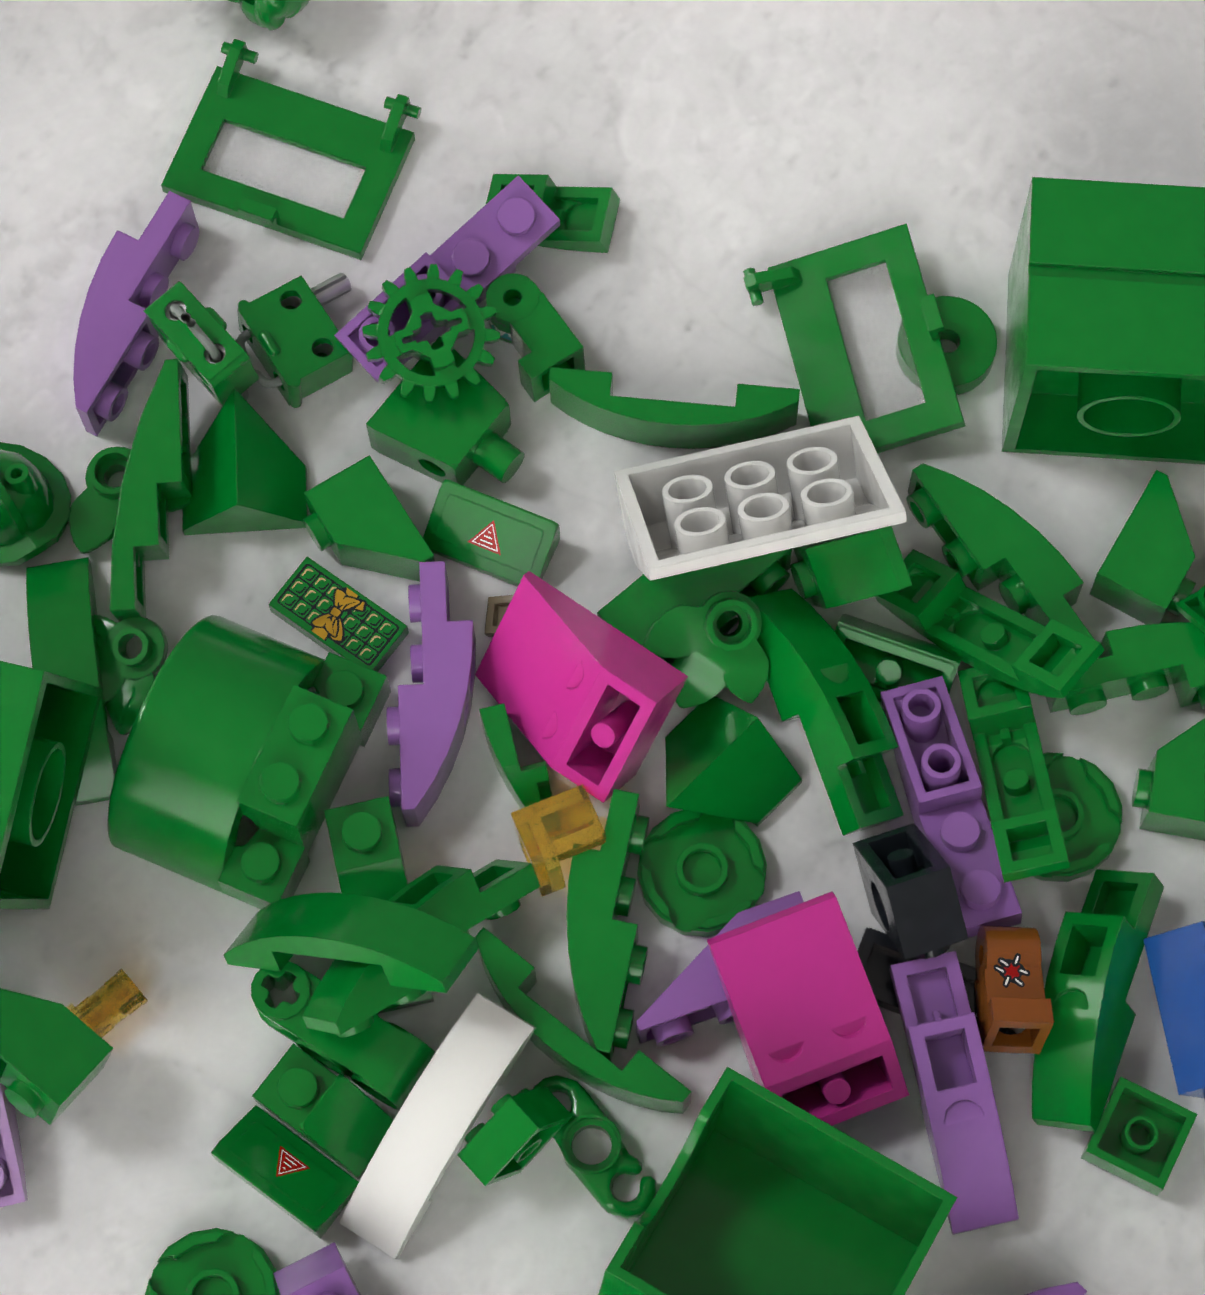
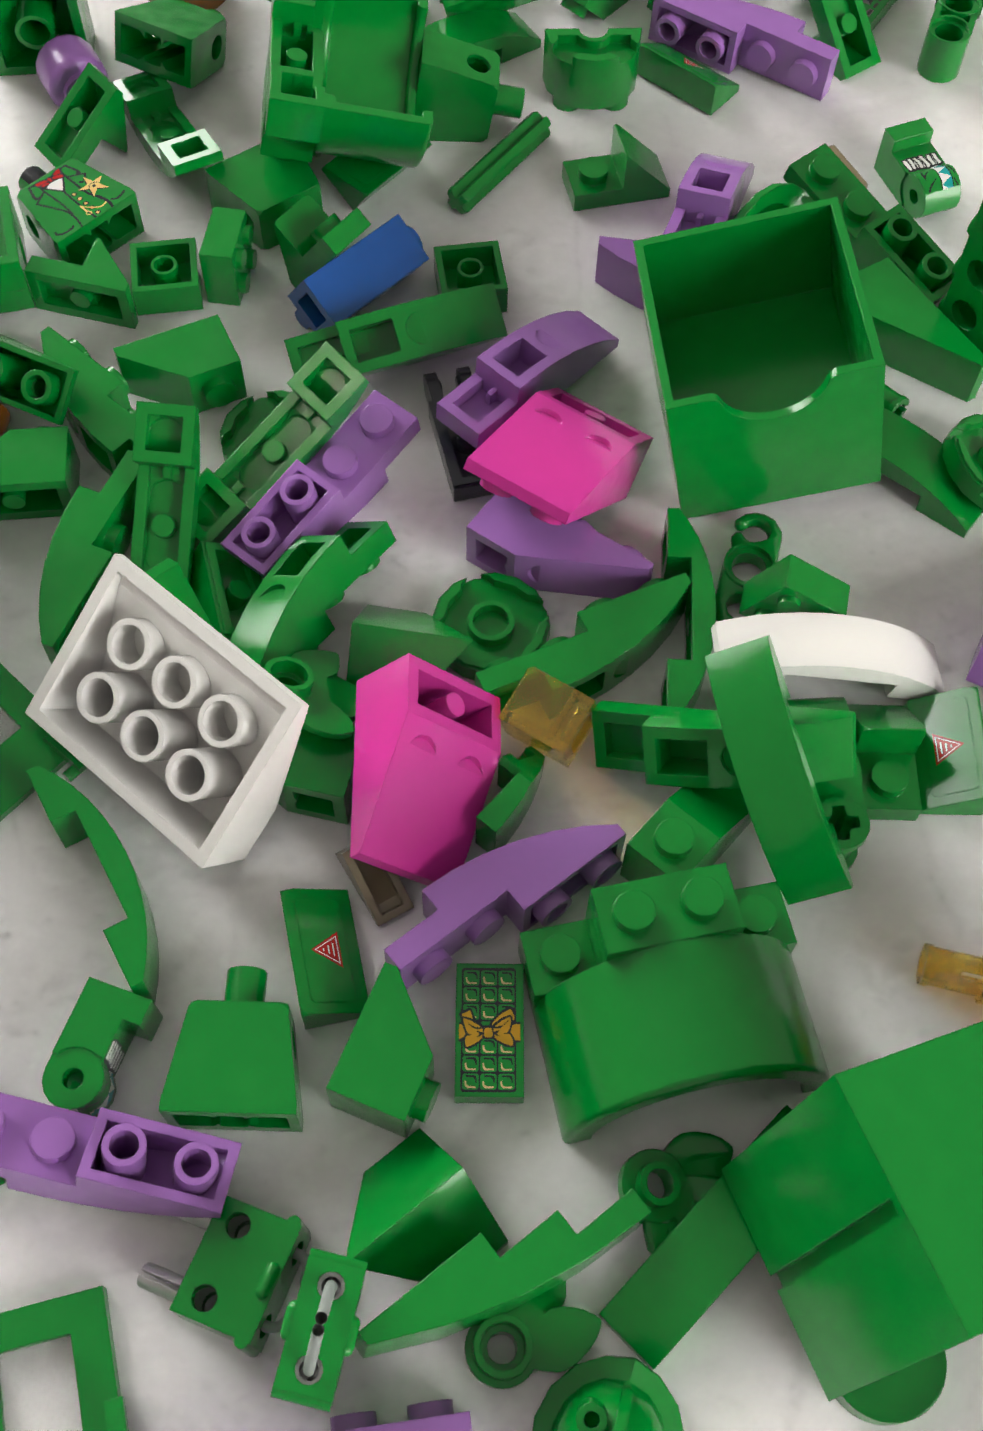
camera: 130 degrees left, 10 degrees down
(421, 308) = (170, 1093): green gear -> none
(911, 892) = (412, 455): black brick -> none
(1011, 990) = (434, 365): dark orange leg -> none

